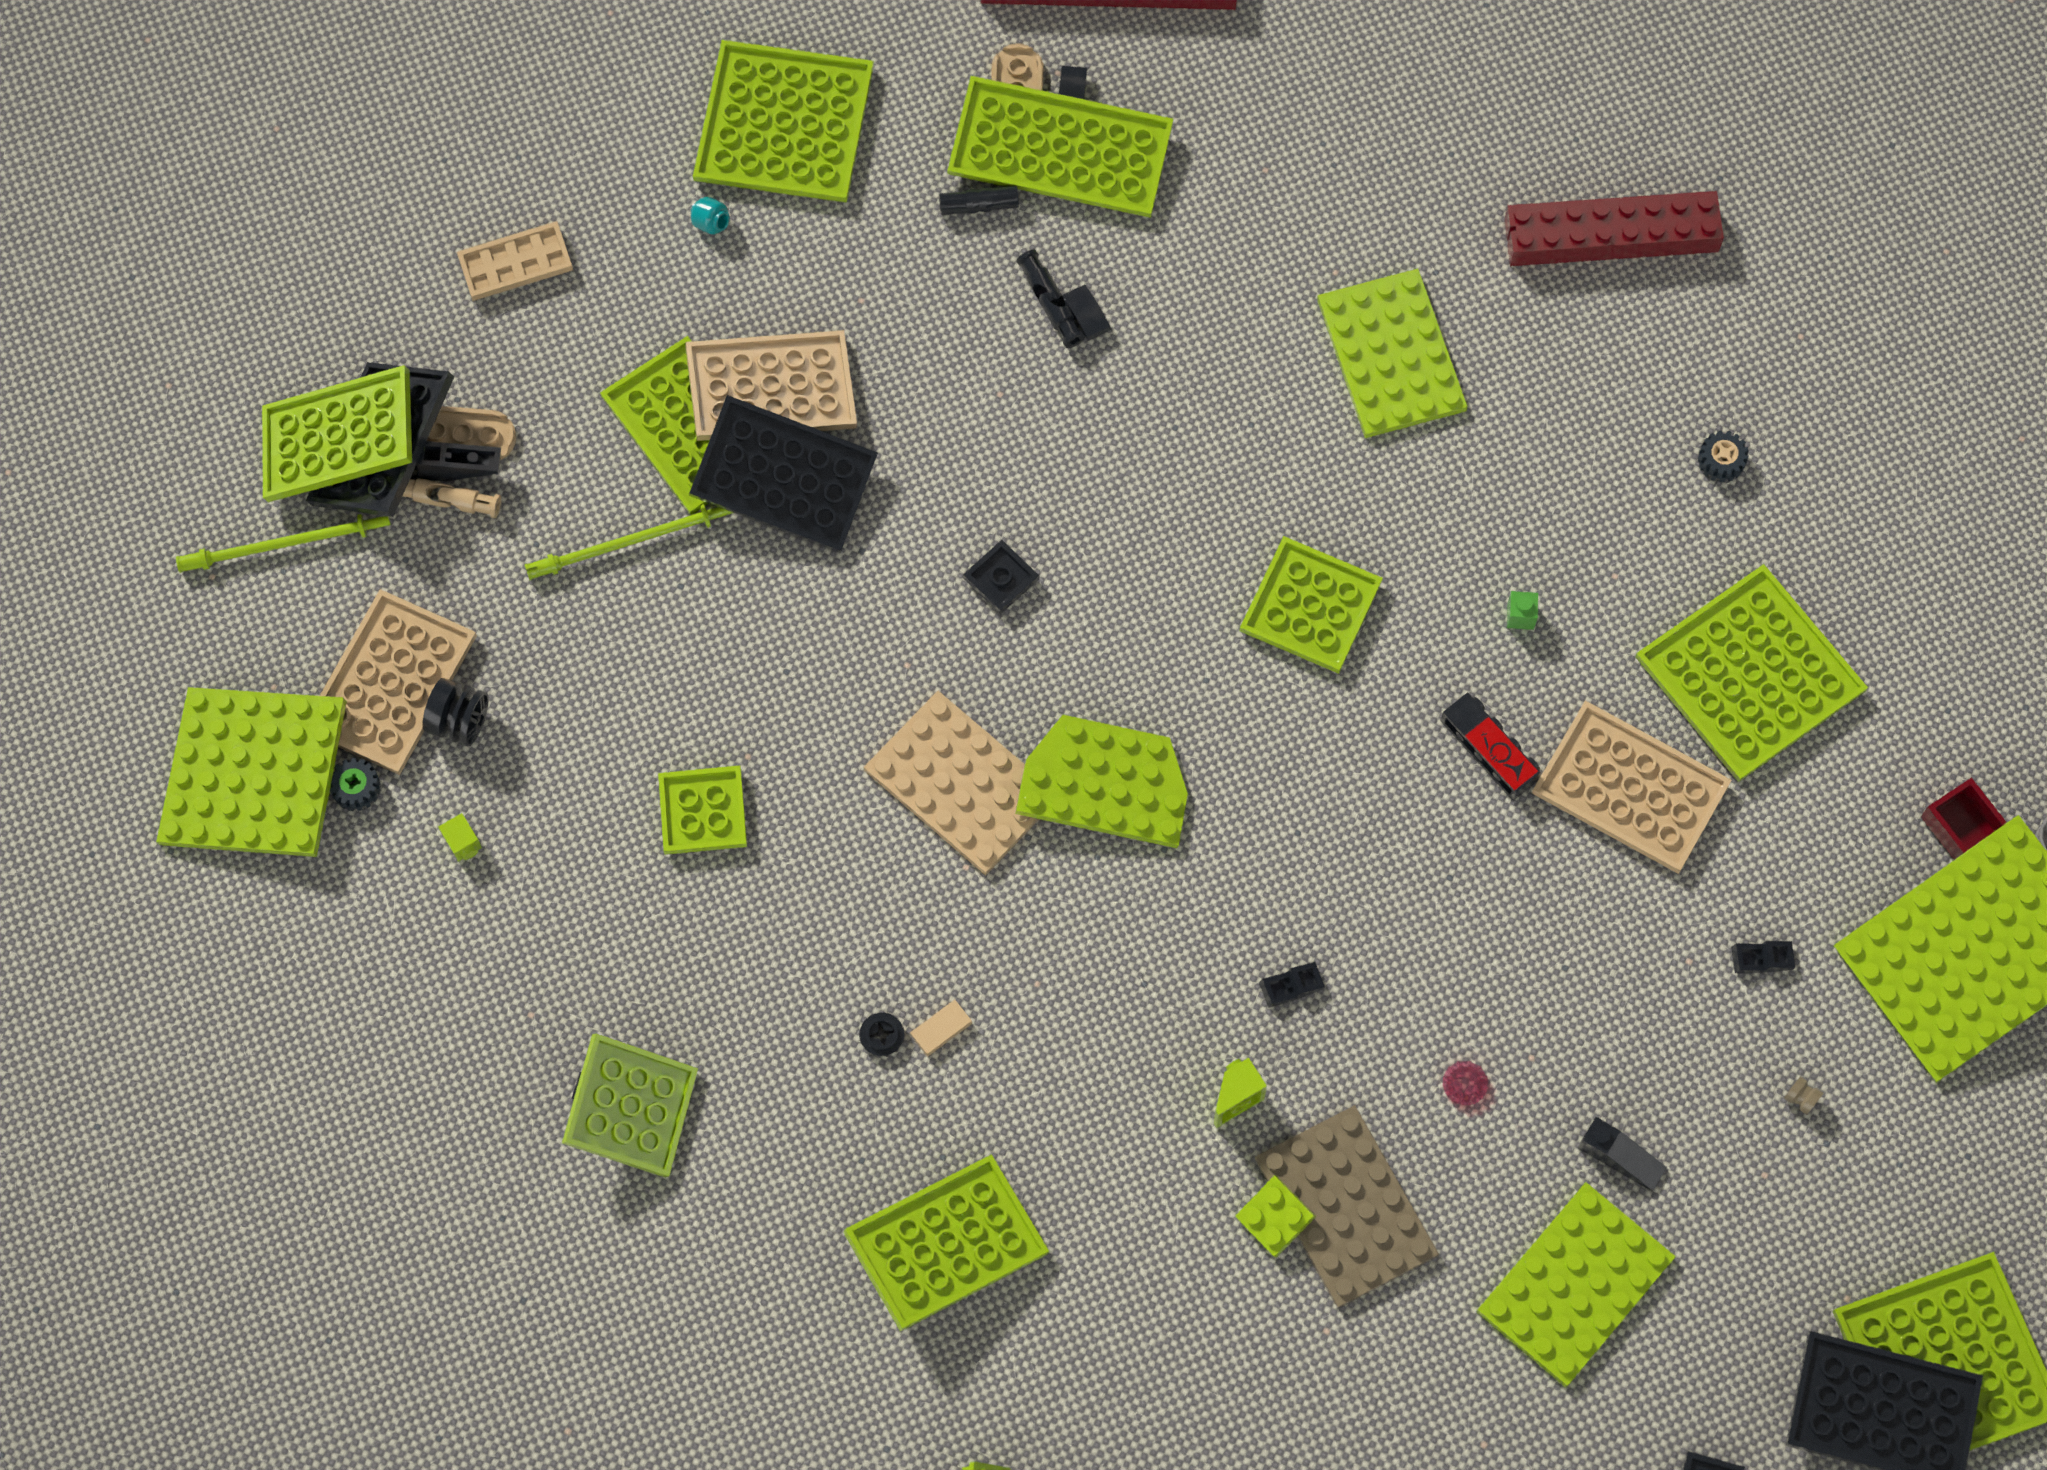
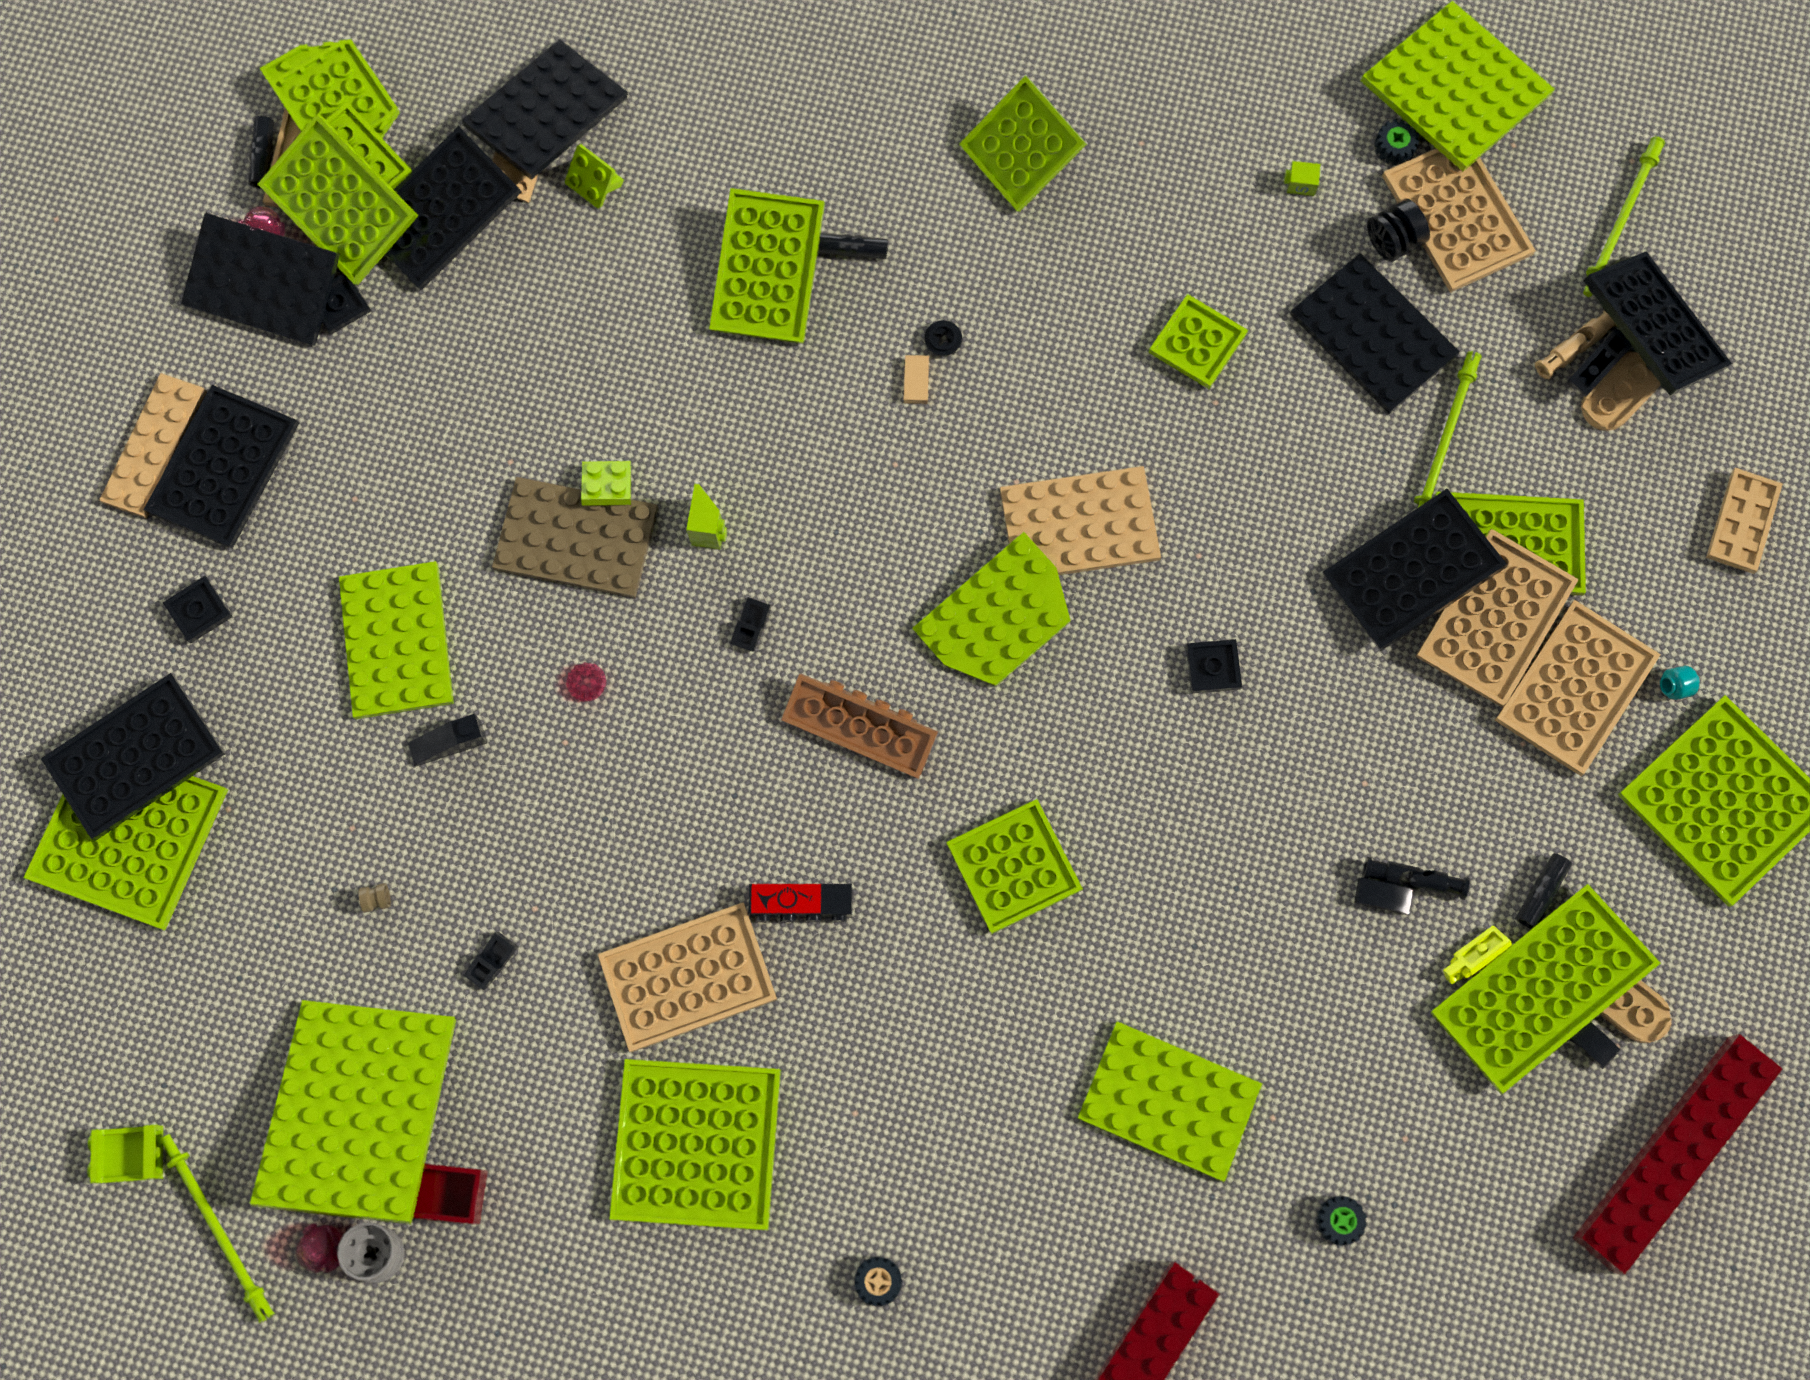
camera: 130 degrees right, 5 degrees up
(336, 434) = (1683, 293): lime plate -> none
(569, 671) = (1374, 333): none -> black plate
(778, 287) = (1577, 687): none -> tan plate
(852, 1184) = (853, 246): none -> black axle
(1074, 212) = (1476, 954): none -> neon yellow hinge
(1301, 817) = (860, 724): none -> medium nougat plate
(1371, 158) = (1349, 1215): none -> black wheel
(1522, 610) = (882, 1013): bright green brick -> none

